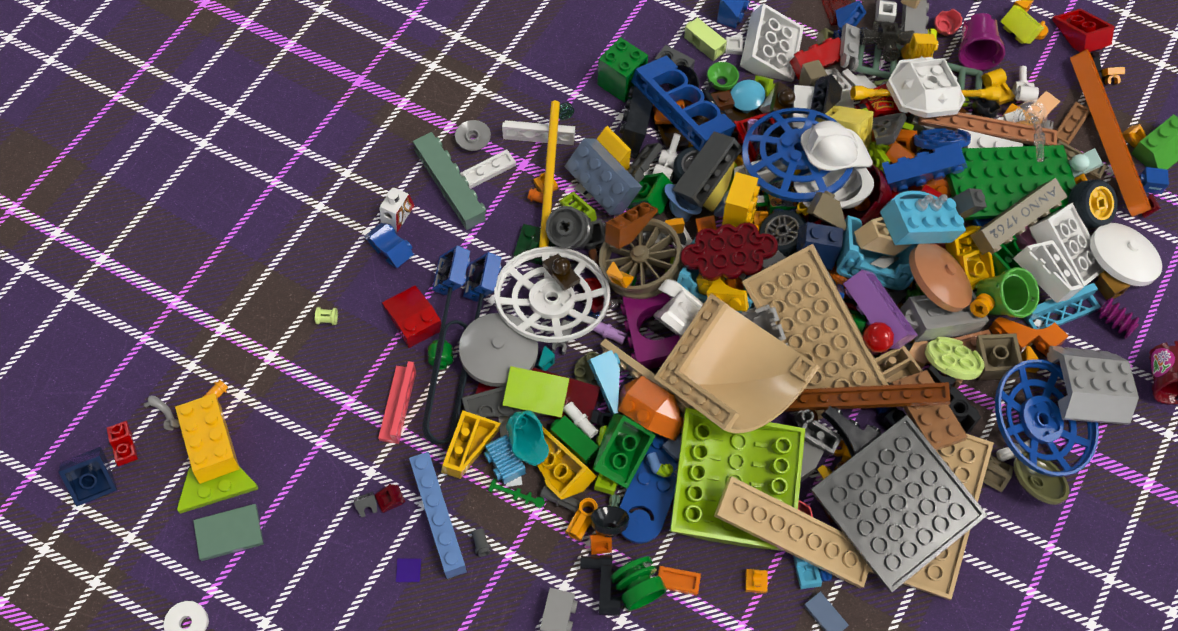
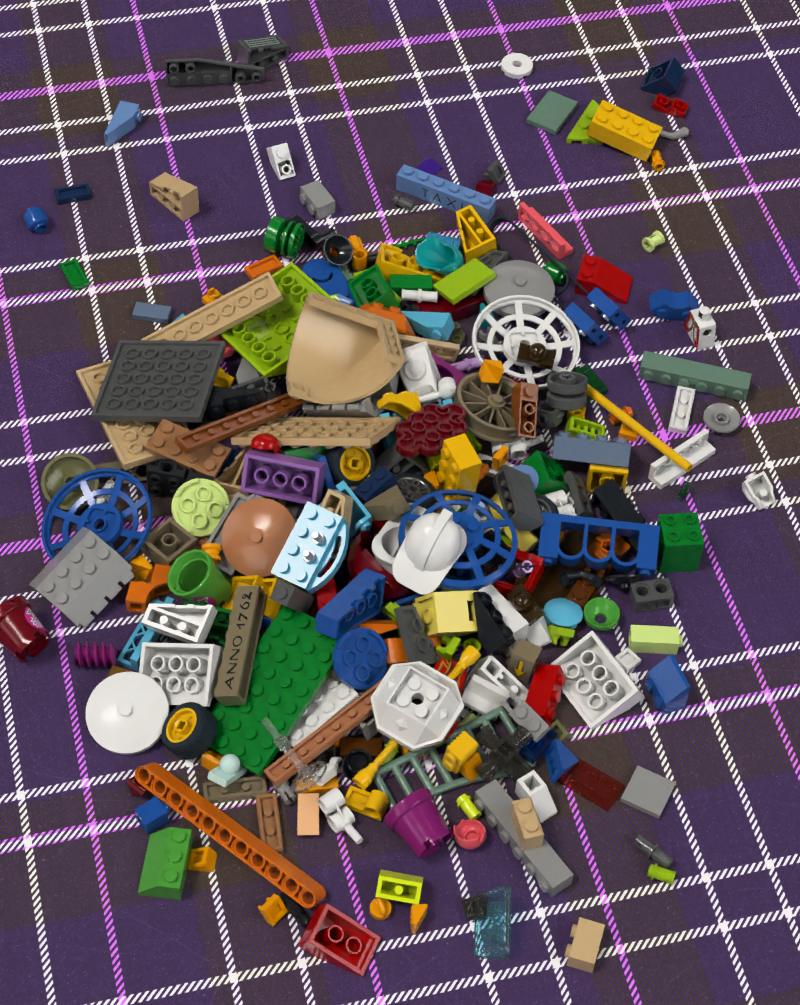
camera: 135 degrees right, 10 degrees down
(515, 70) = (758, 490): none -> white hand

